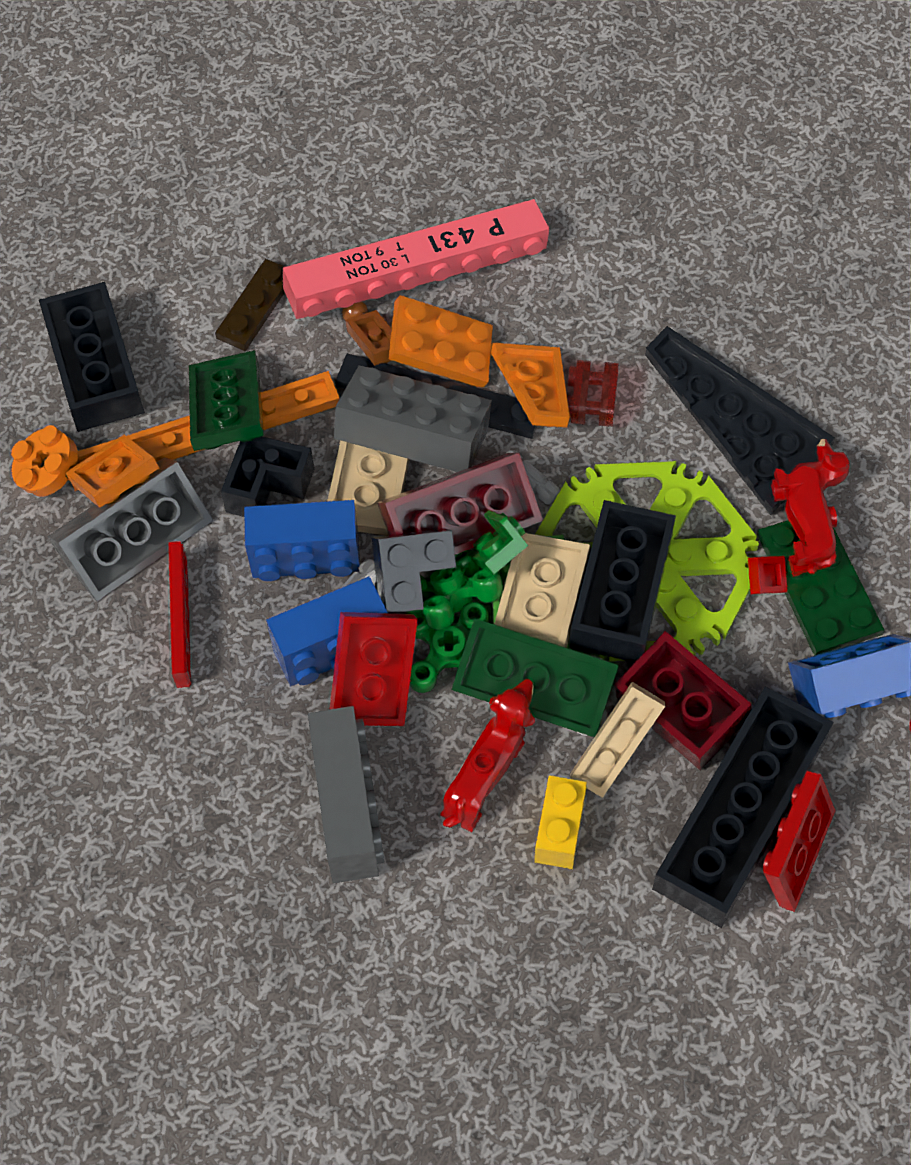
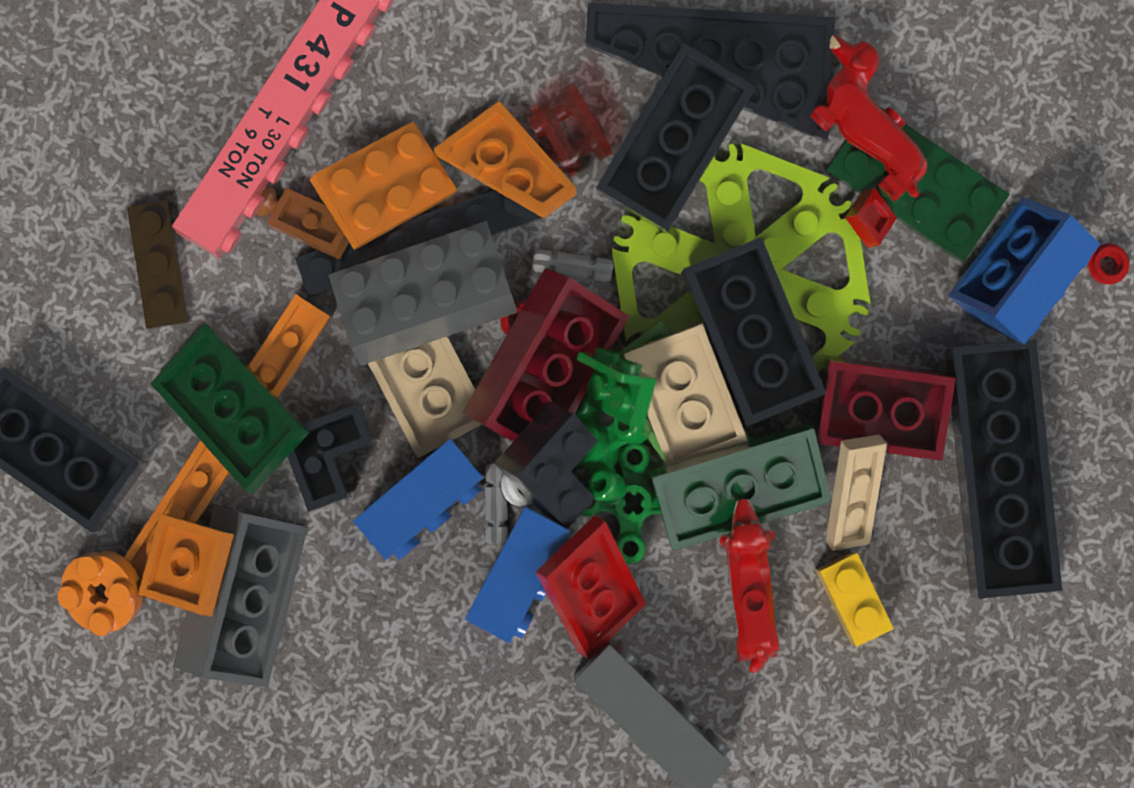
camera: 35 degrees left, 25 degrees up
(179, 615) = (359, 649): red tile -> none
(662, 429) = (675, 138): none -> black brick
(799, 840) = (1074, 471): red plate -> none

